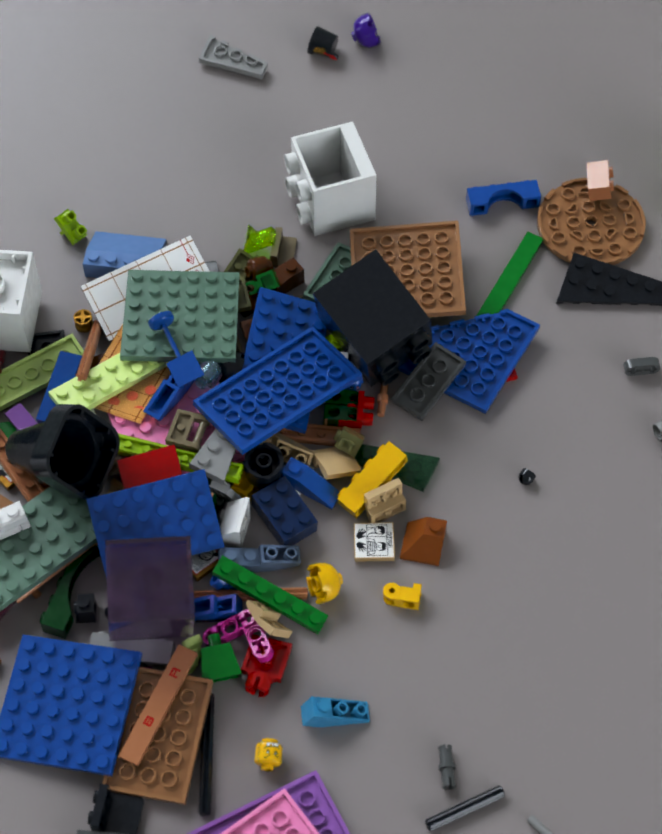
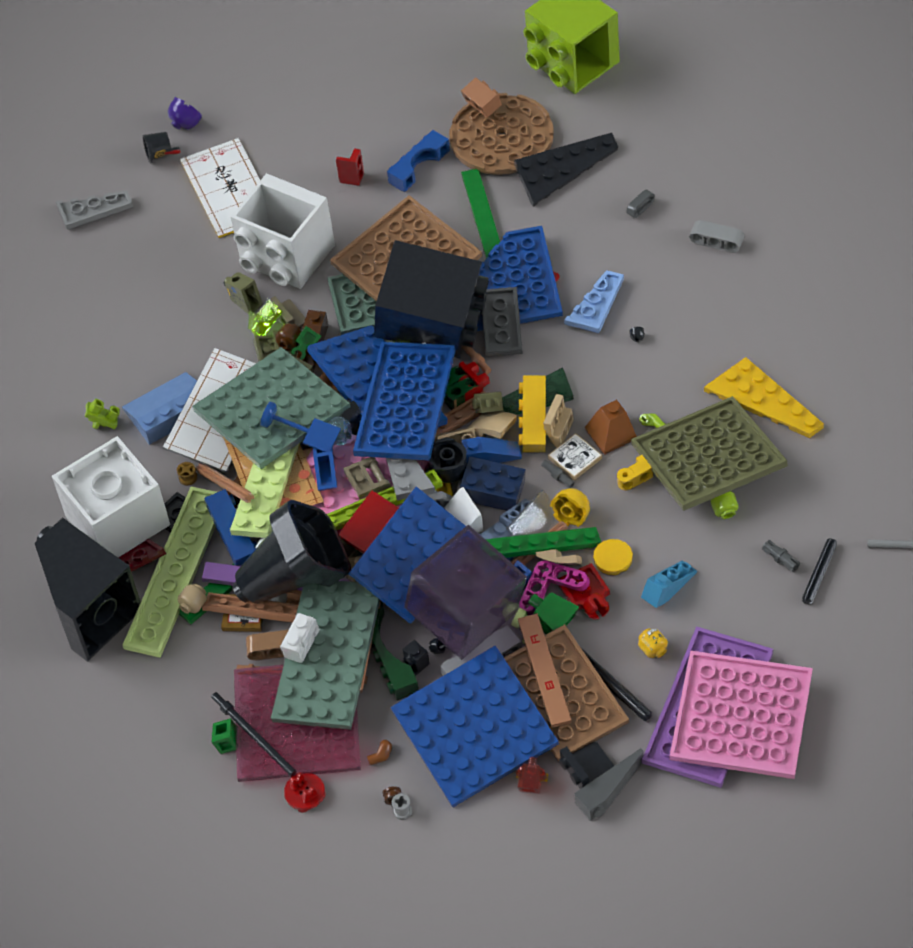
camera: 35 degrees left, 5 degrees down
(64, 785) = (530, 776): none -> clear red piece
(264, 200) = (243, 292): none -> olive torso
(284, 568) = (534, 518): none -> clear piece
(316, 652) = (613, 556): none -> yellow tile
(346, 545) = (557, 473): none -> dark grey bar
(349, 98) = (221, 181): none -> white piece
(443, 167) = (350, 169): none -> red panel
(445, 682) = (725, 505): none -> lime head
(465, 561) = (651, 420): none -> lime arm
(474, 628) = (709, 453): none -> olive plate
(520, 425) = (596, 305): none -> light blue wing
(573, 611) = (764, 397): none -> yellow wing

